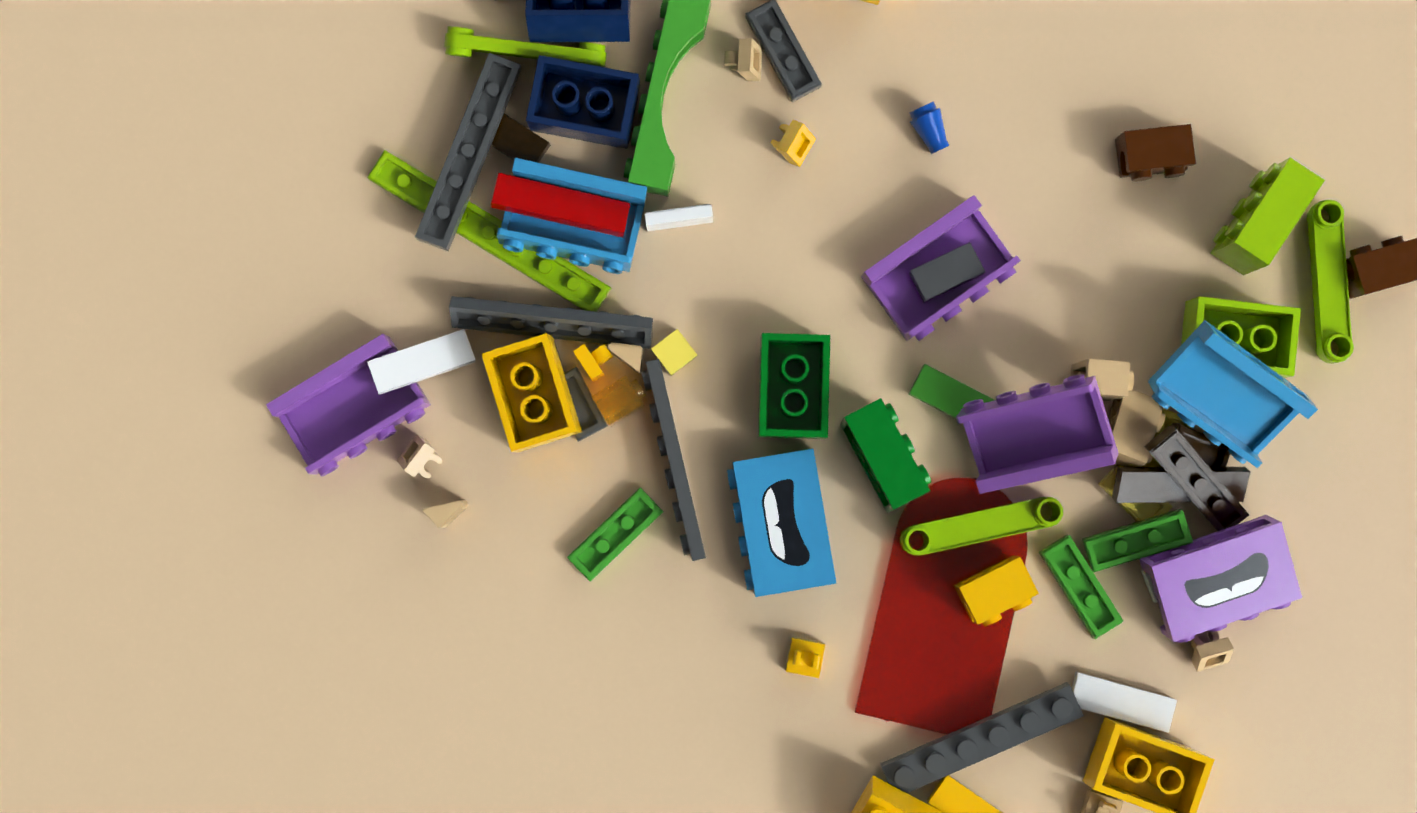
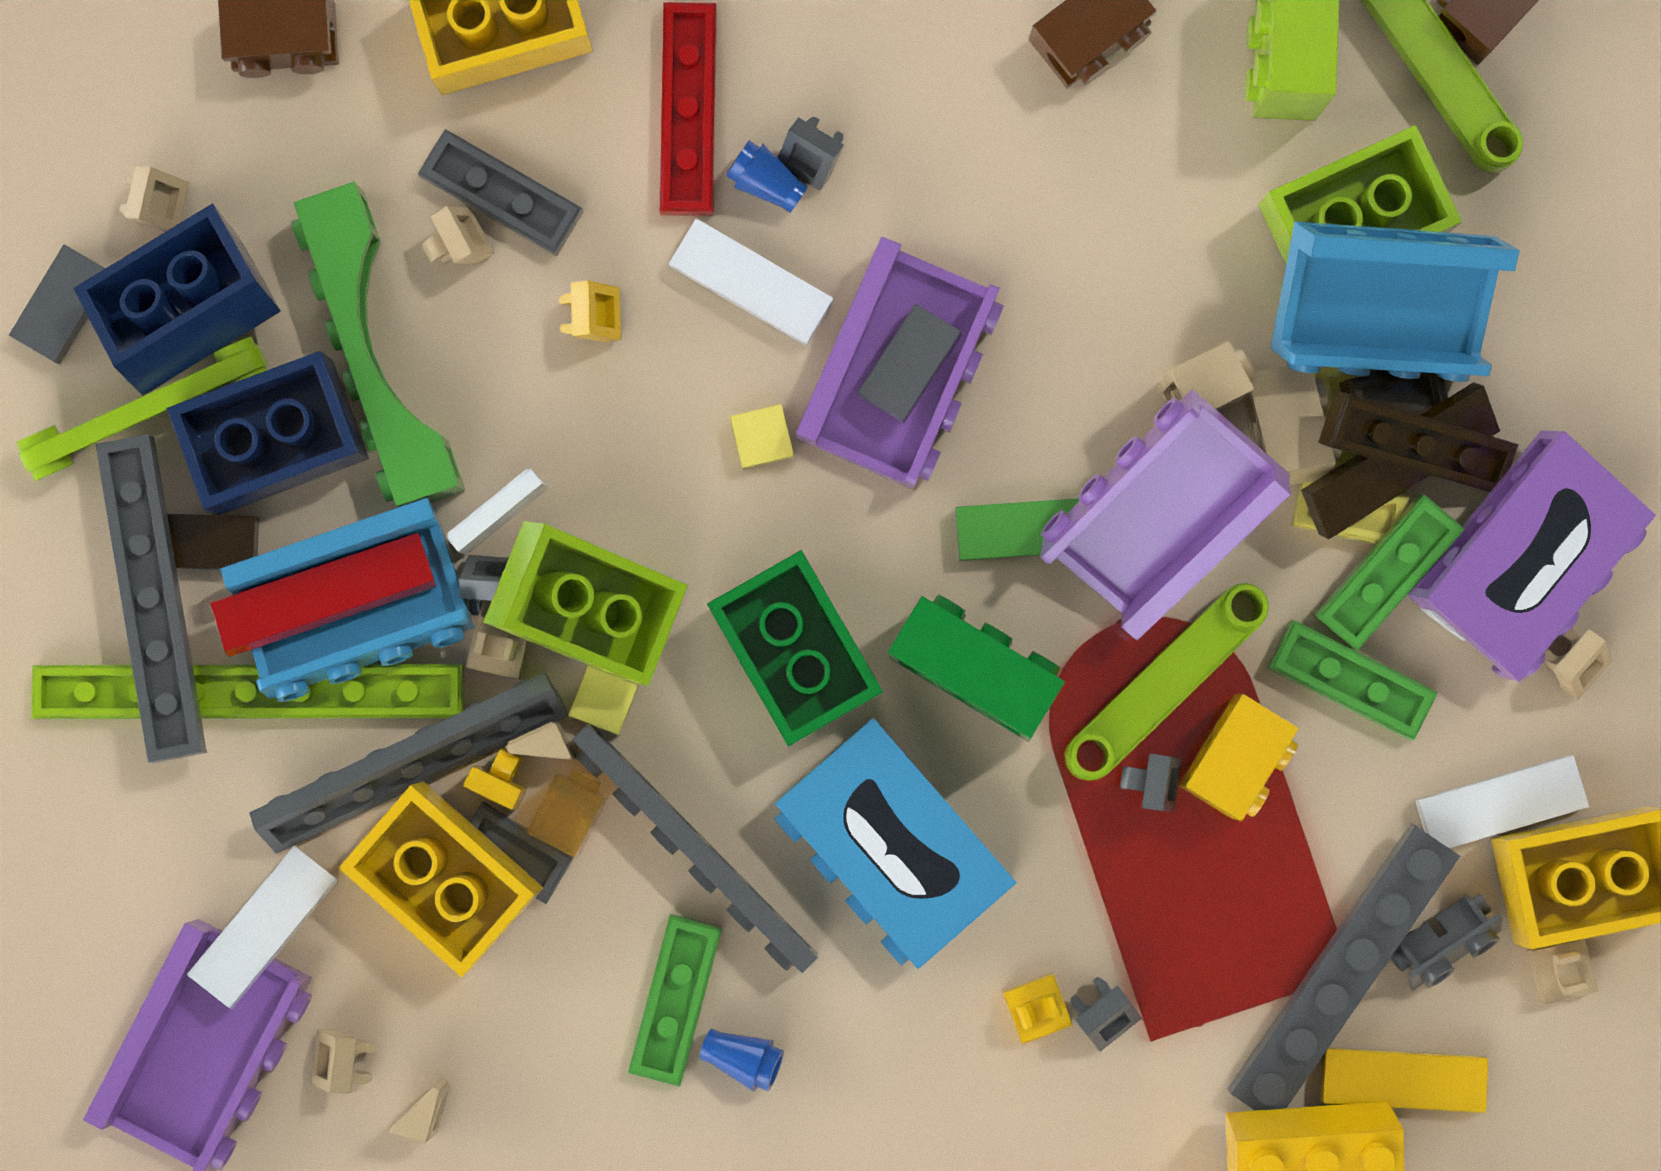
camera: 30 degrees left, 0 degrees up
(633, 588) = (744, 1058): none -> blue cone
(635, 290) = (496, 651): none -> tan tile
(653, 251) = (480, 579): none -> dark grey tile
(697, 293) = (585, 602): none -> lime brick
(840, 685) = (1107, 1017): none -> dark grey tile
(843, 263) = (762, 436): none -> light yellow tile
(887, 178) = (751, 282): none -> white tile
(910, 66) = (688, 109): none -> red tile
(943, 576) = (1158, 782): none -> dark grey tile
(962, 128) = (810, 152): none -> dark grey tile
(1060, 759) = (1466, 933): none -> dark grey hinge

